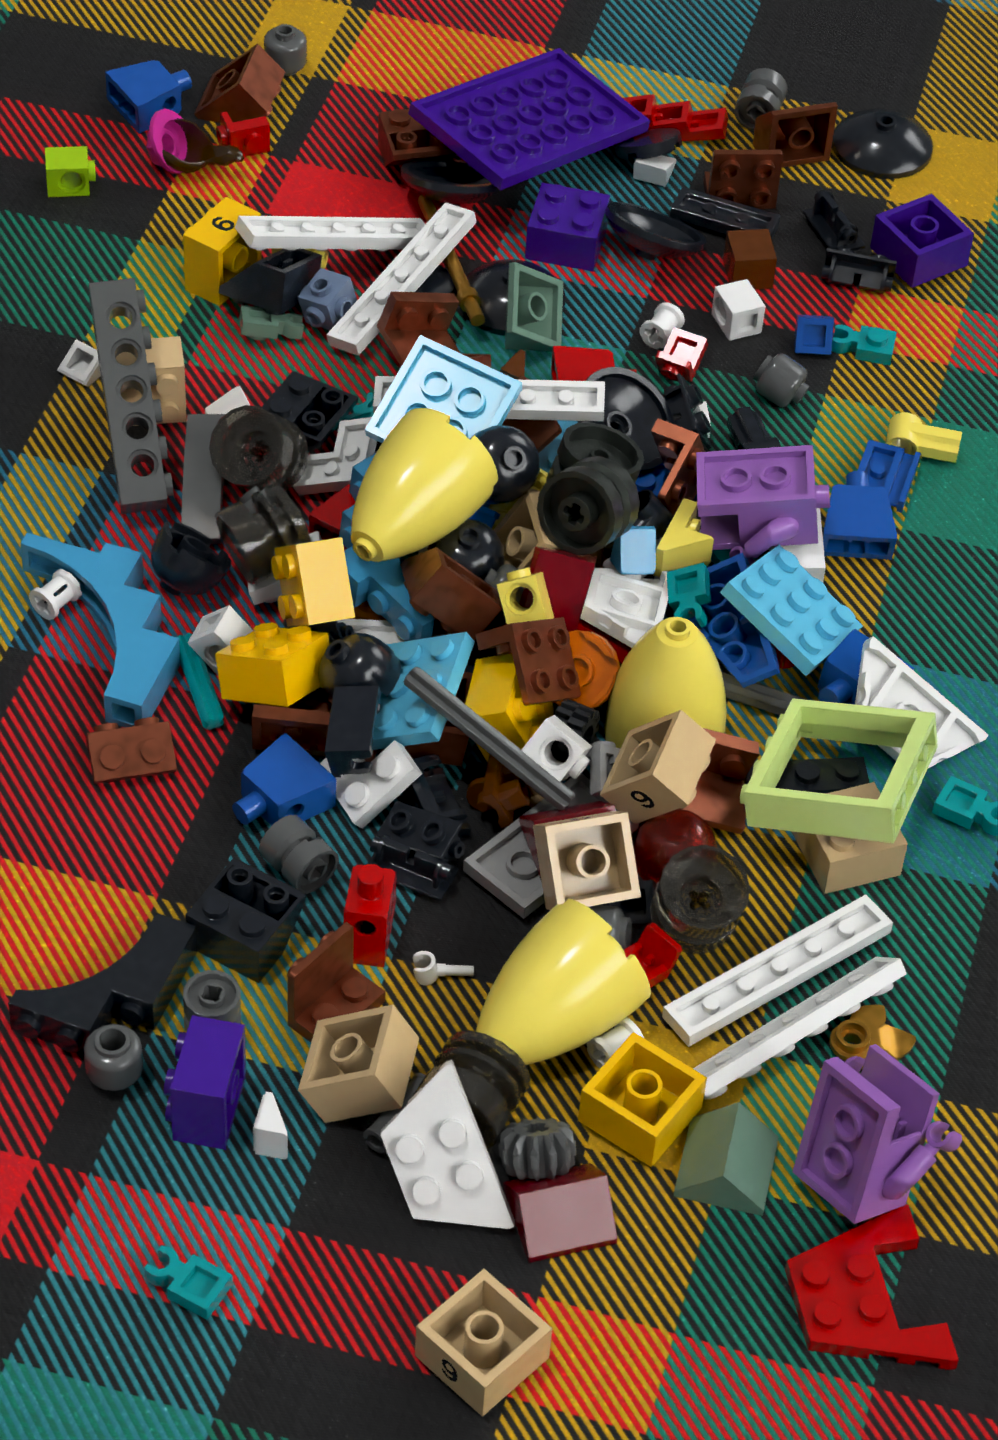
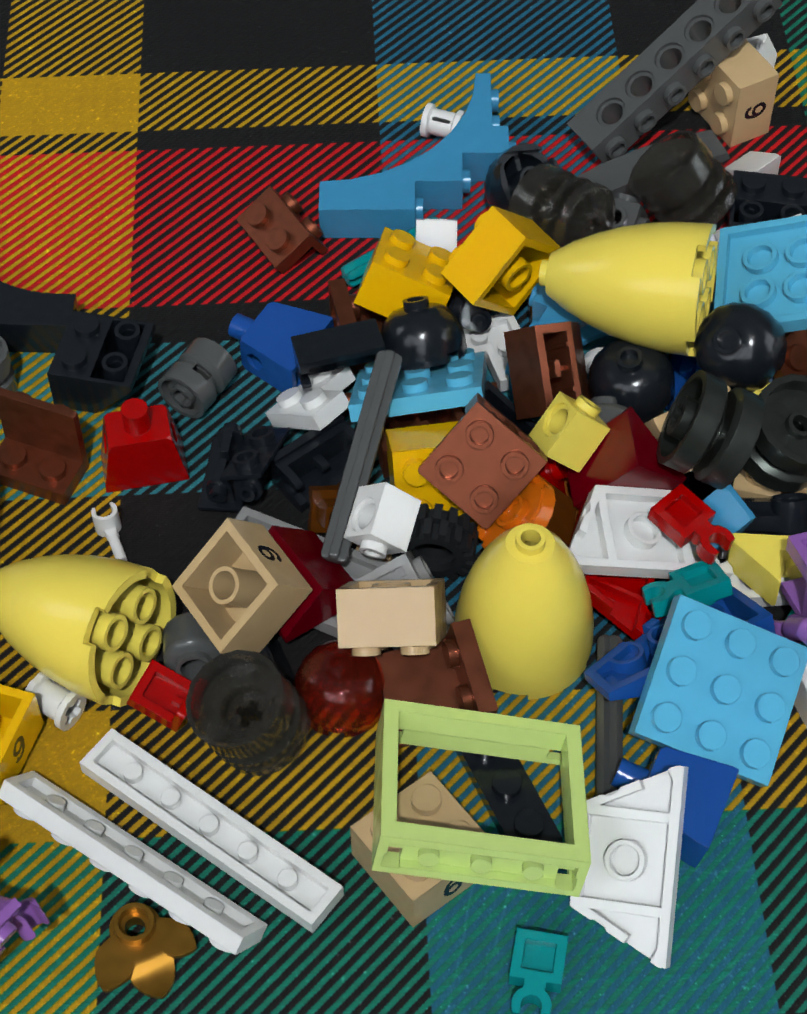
camera: 75 degrees right, 5 degrees up
(637, 568) = (688, 519): none -> red plate

